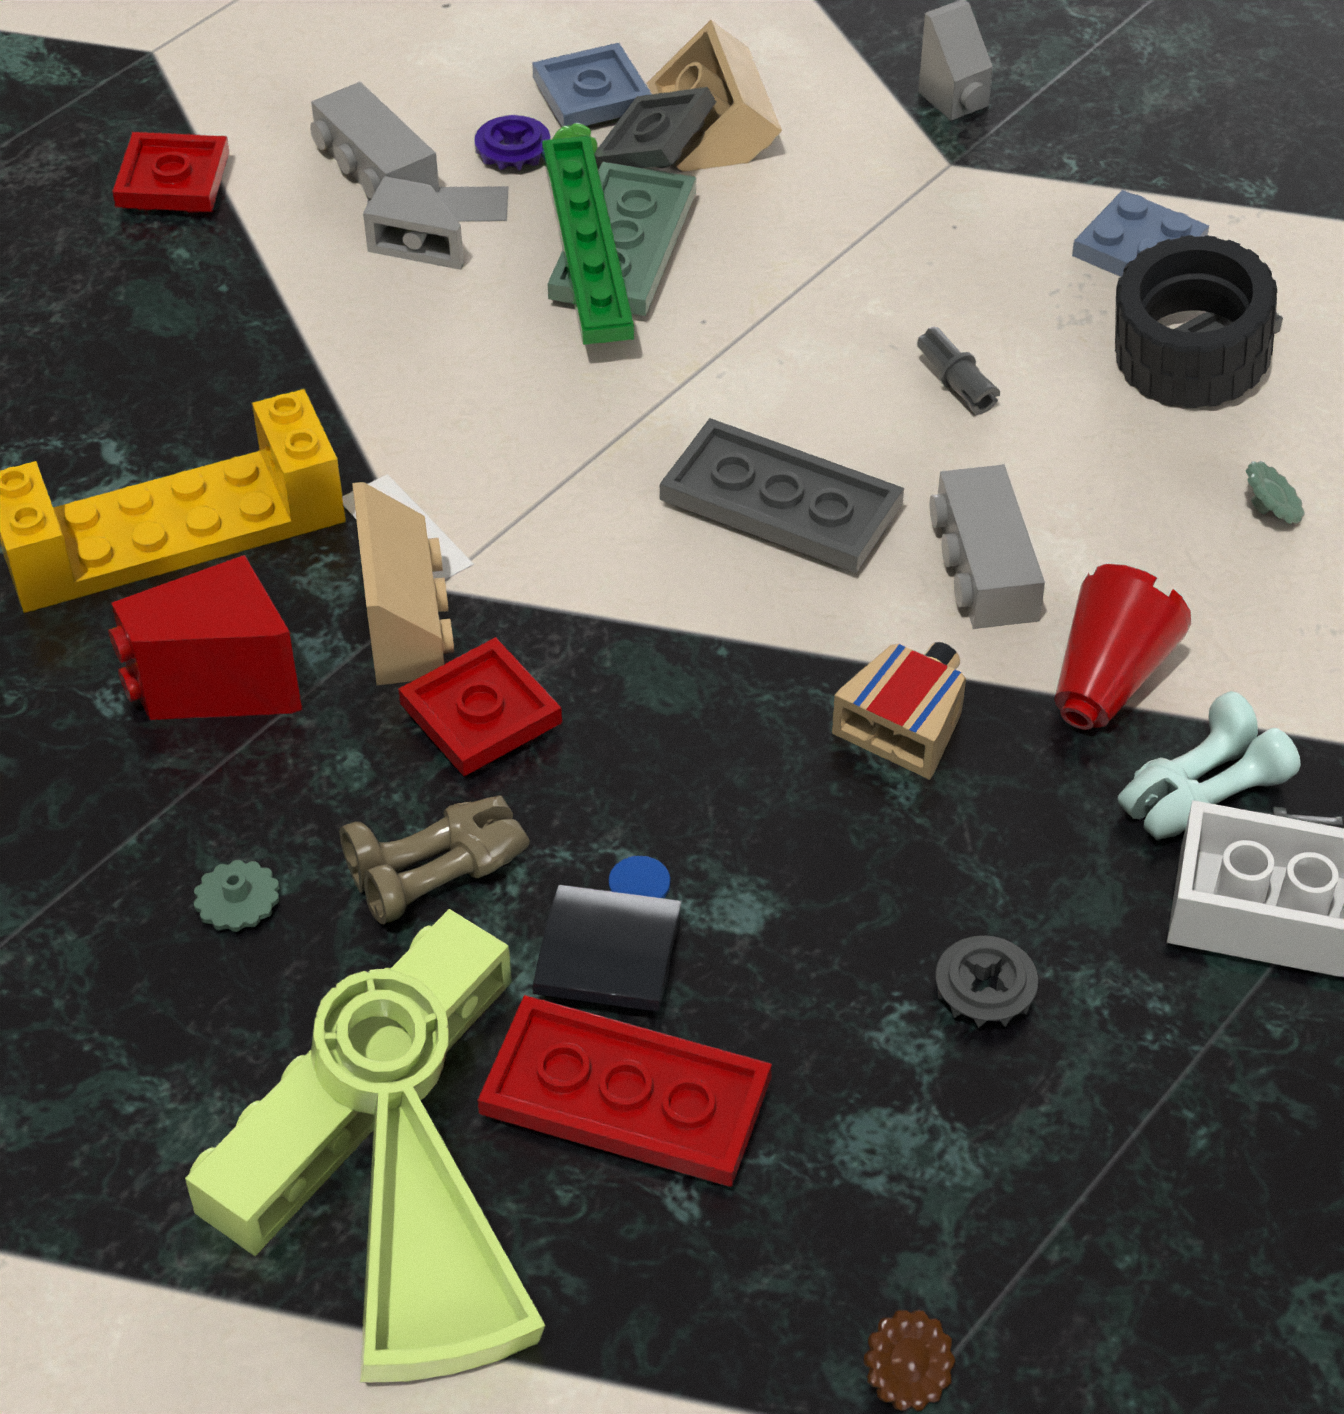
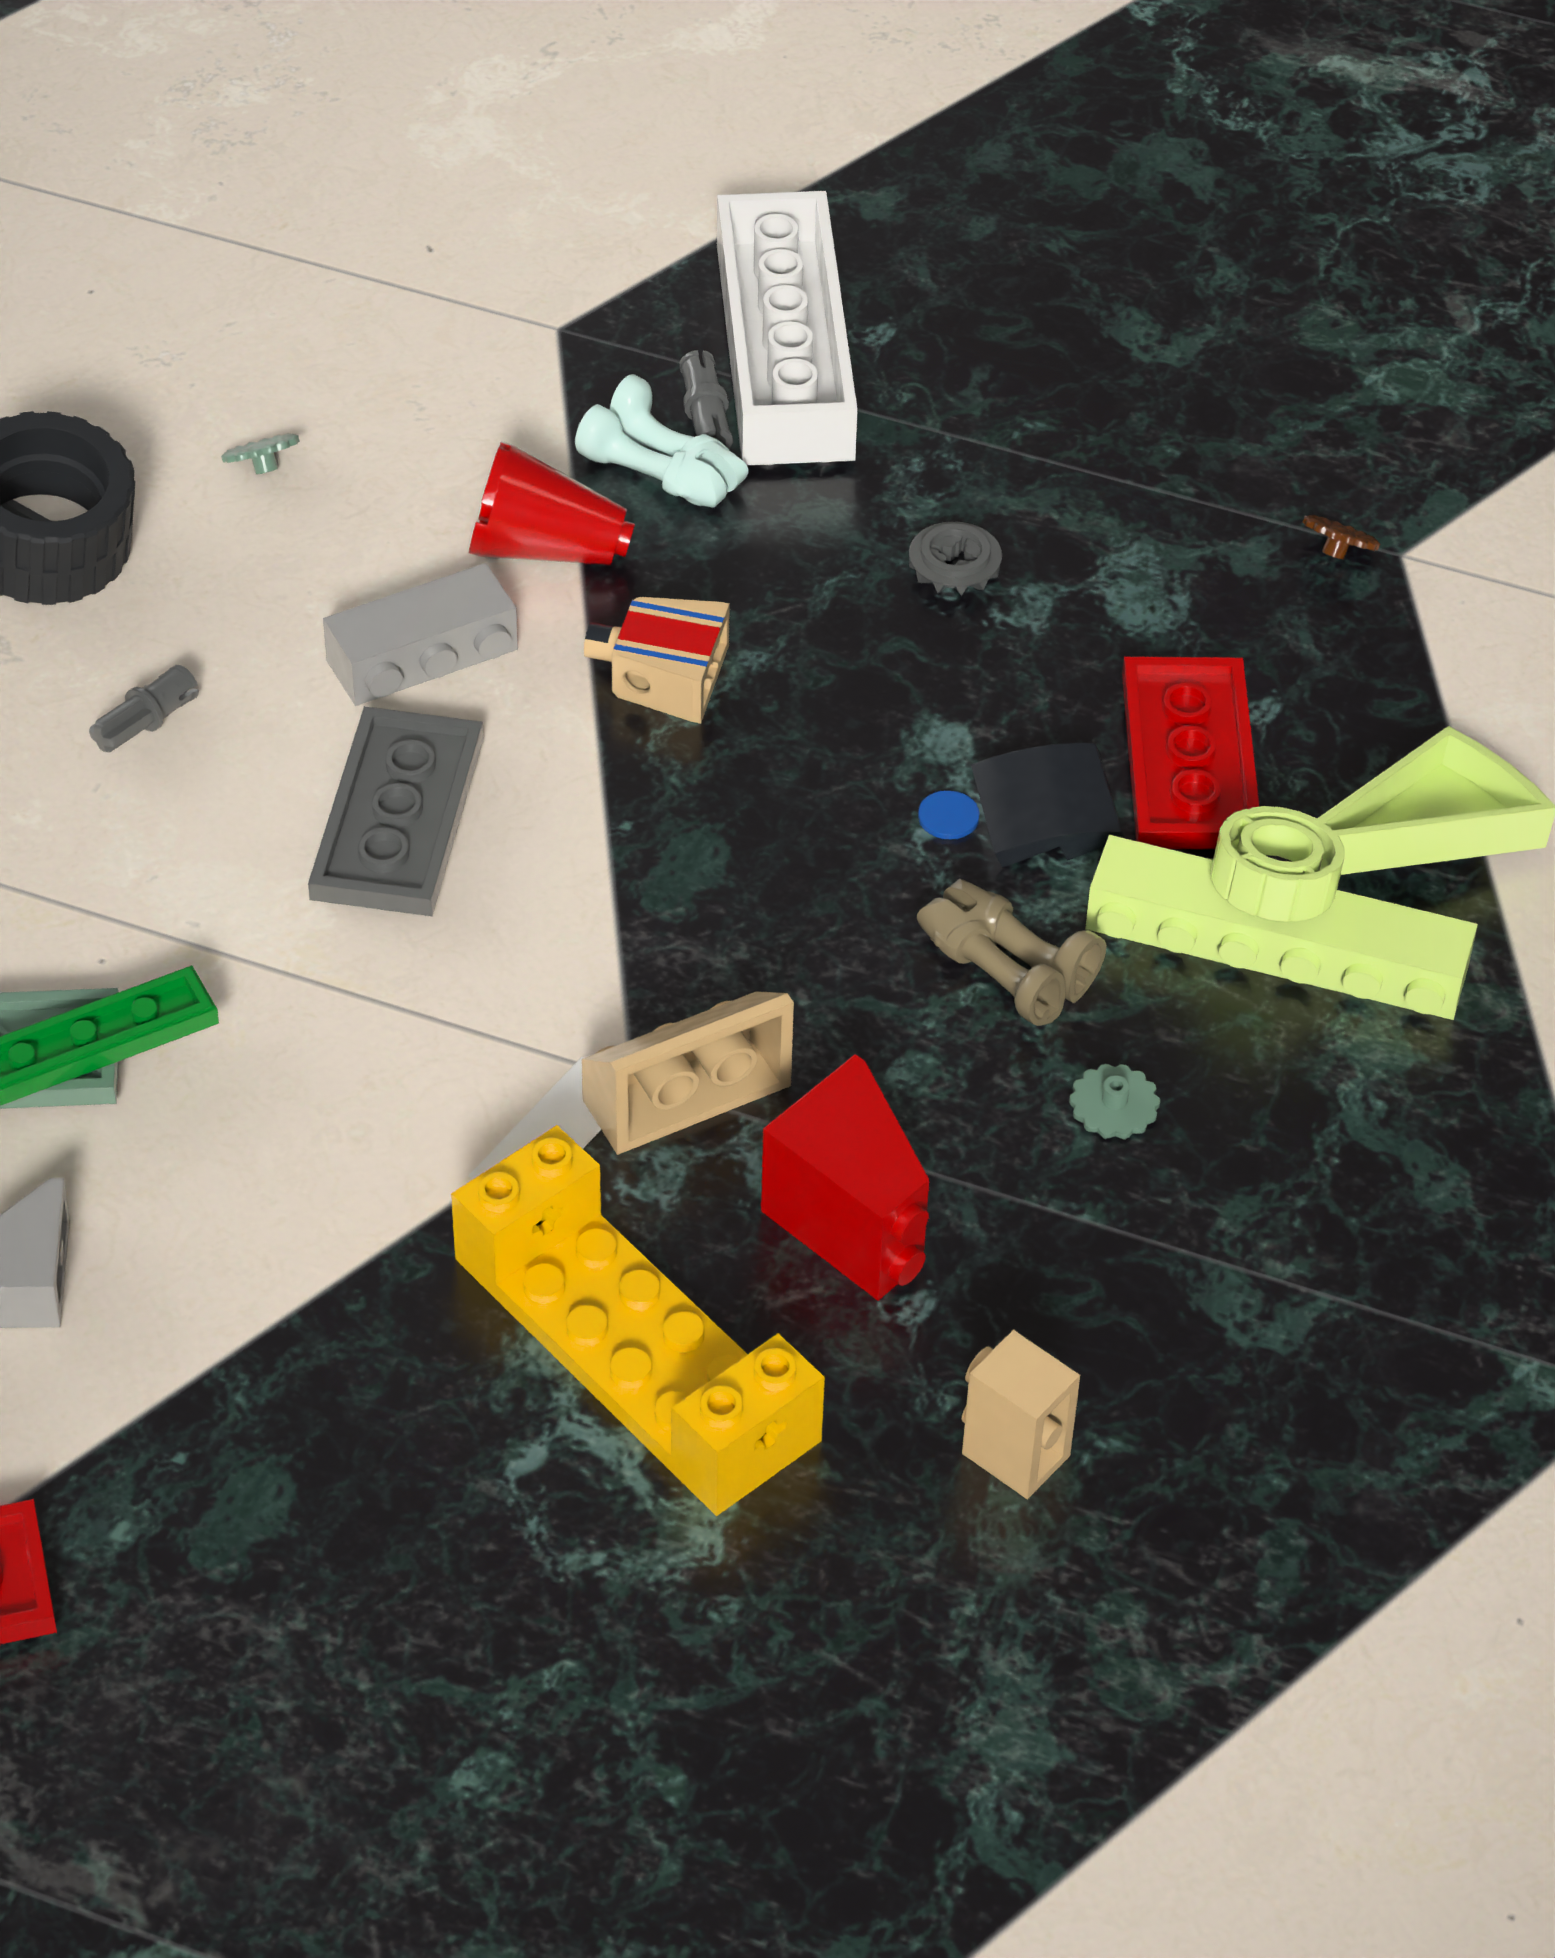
camera: 110 degrees left, 0 degrees up
(480, 706) = (810, 959): red plate -> none

